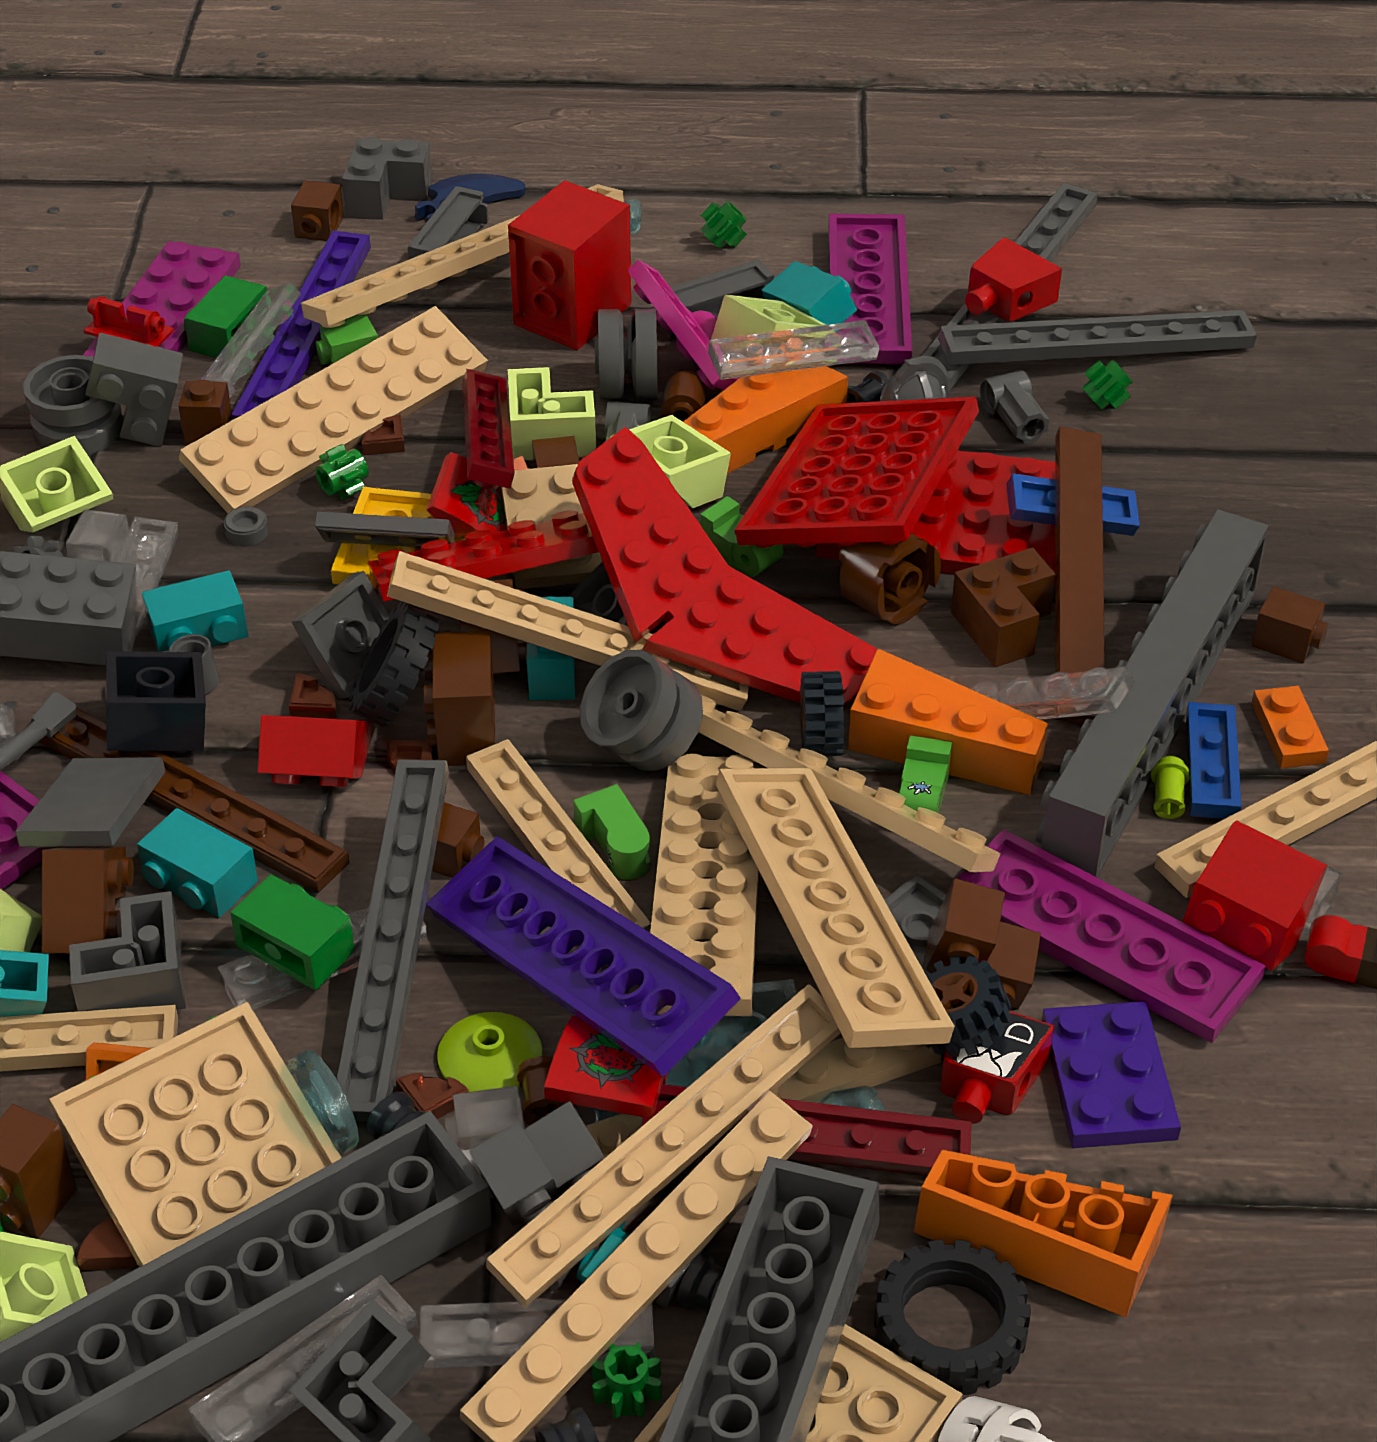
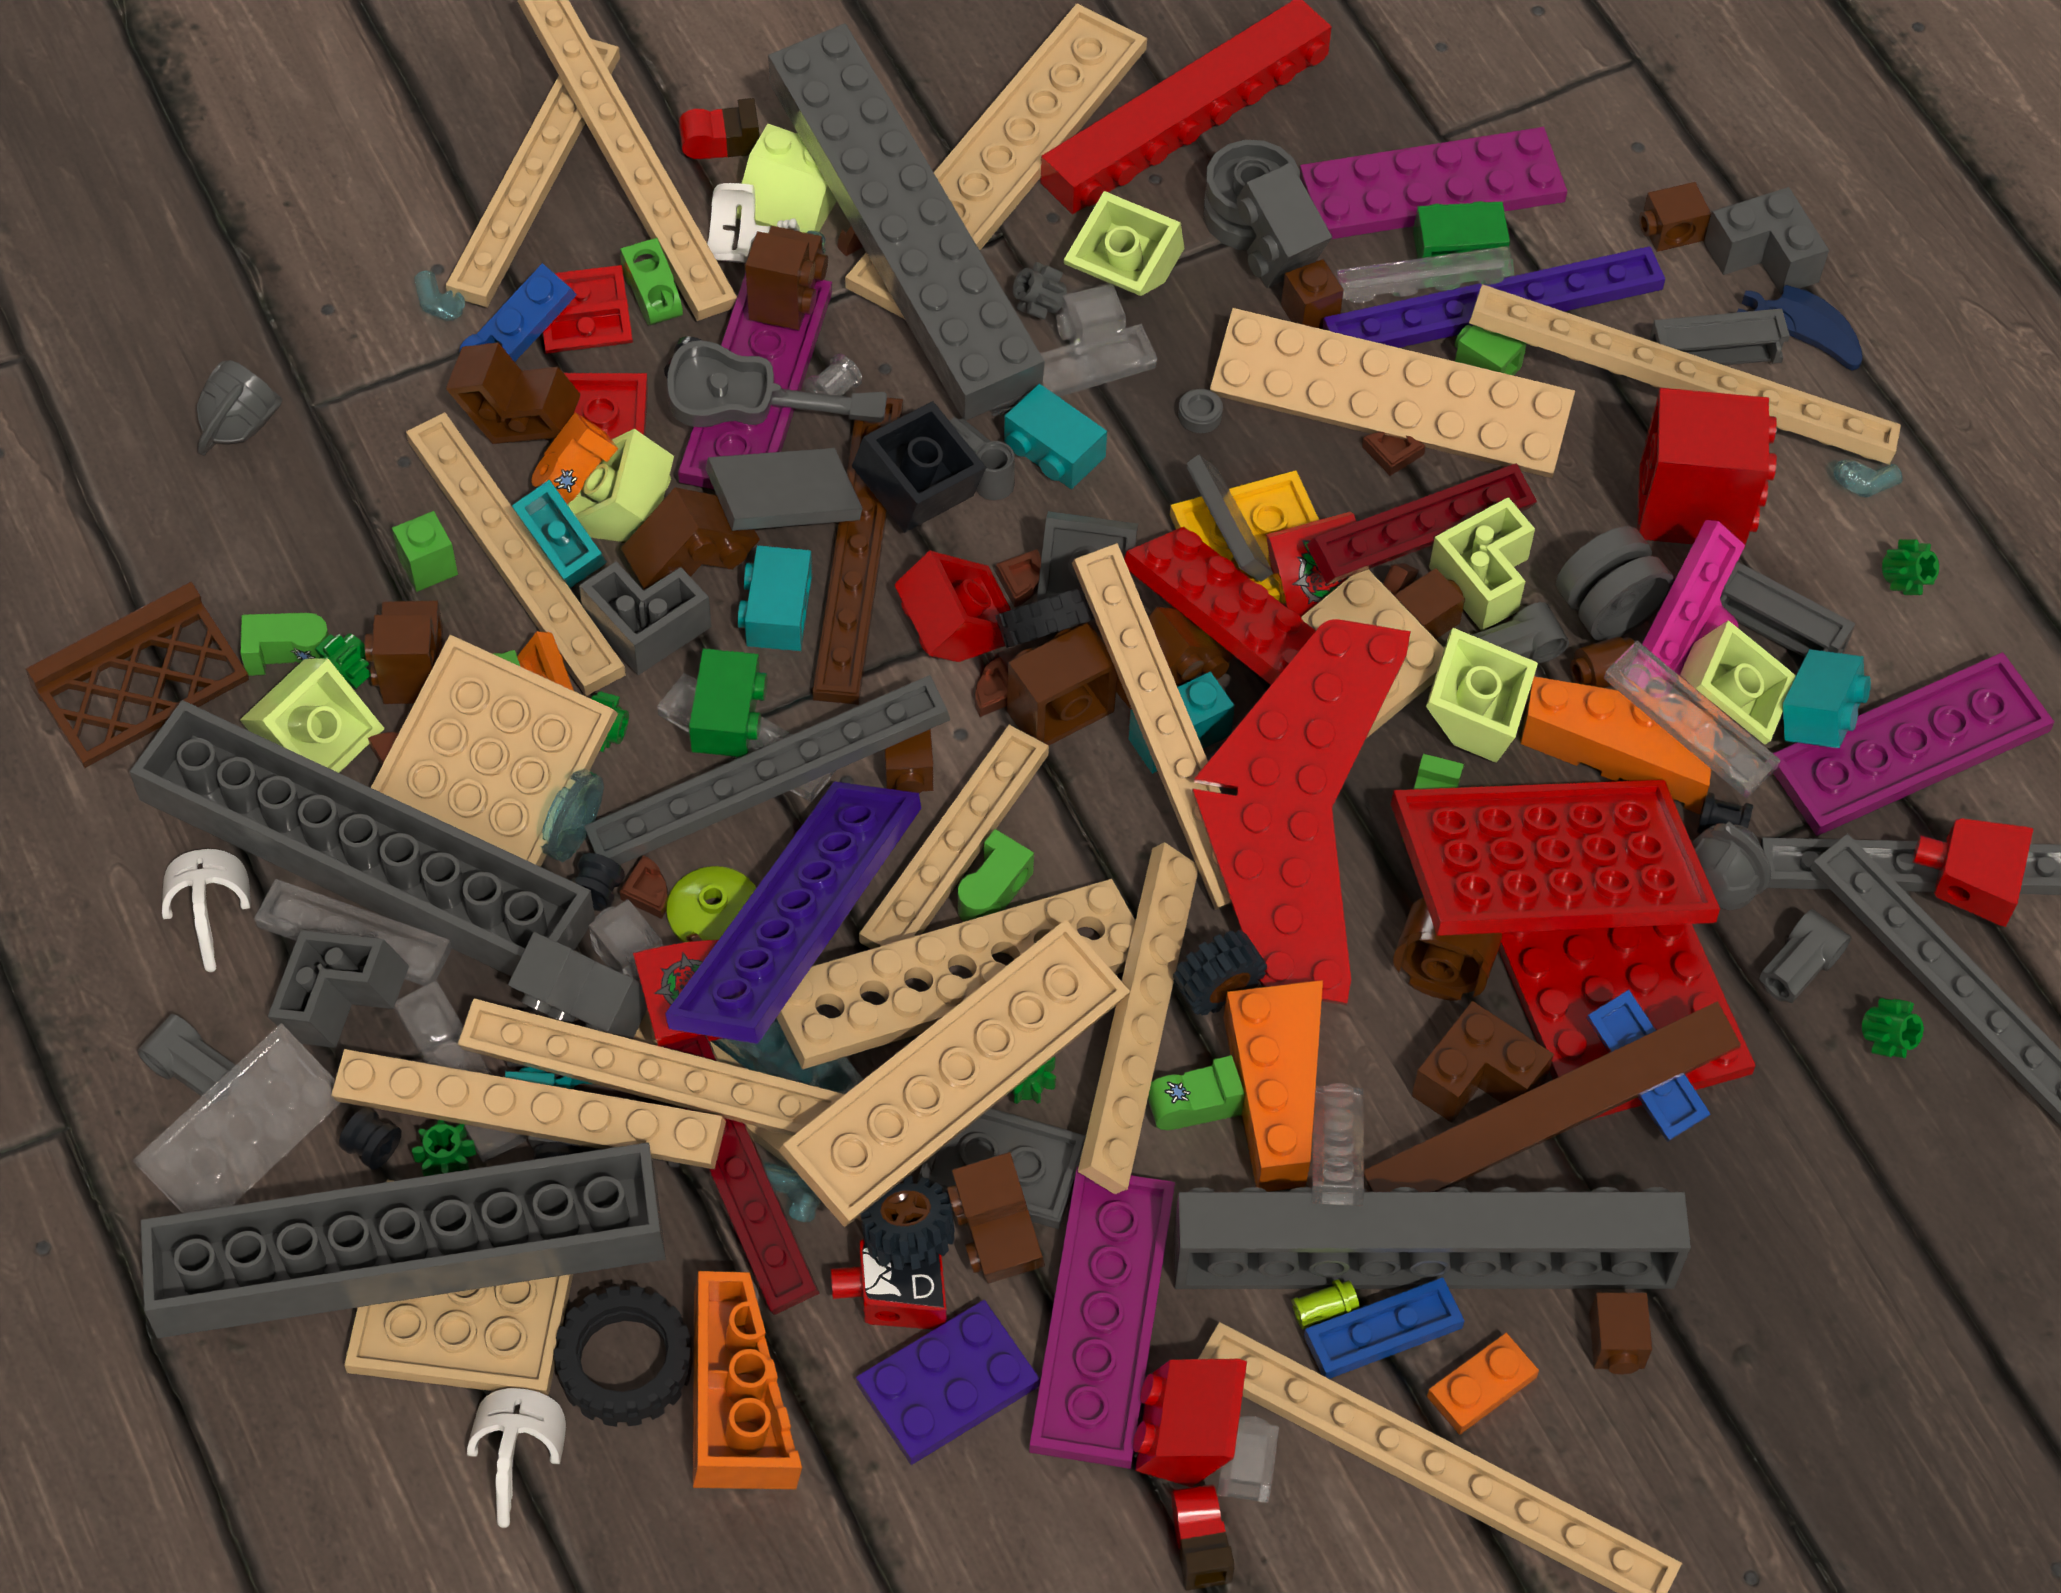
camera: 60 degrees right, 15 degrees up
(135, 325) = (1375, 170): red hinge -> none
(342, 471) = (1305, 443): green gear -> none
(641, 710) = (1122, 827): dark grey wheel -> none

